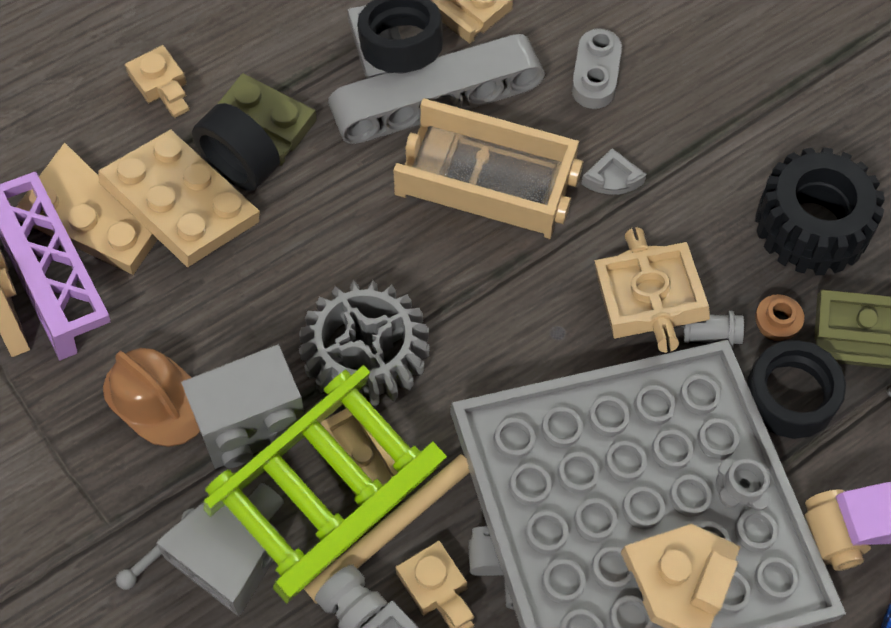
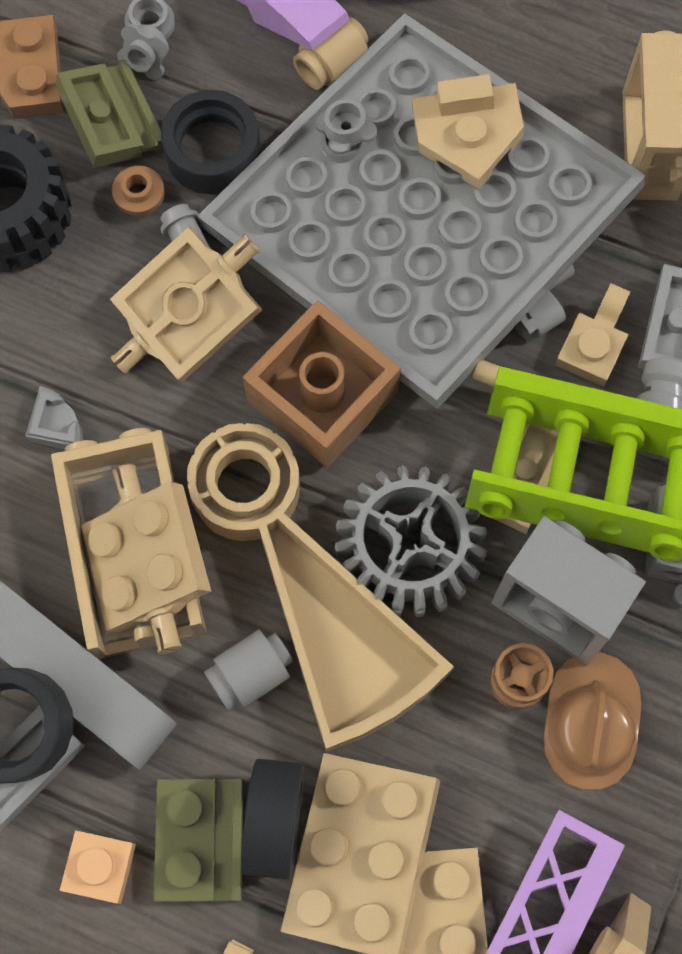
camera: 120 degrees left, 10 degrees up
(211, 346) = (526, 668): none -> medium nougat wheel
(287, 59) = (97, 867): none -> light nougat plate
(305, 255) = (352, 649): none -> tan piece
(346, 193) = (249, 669): none -> light grey brick
(463, 160) = (146, 558): none -> tan plate
(522, 336) = (322, 383): none -> medium nougat brick

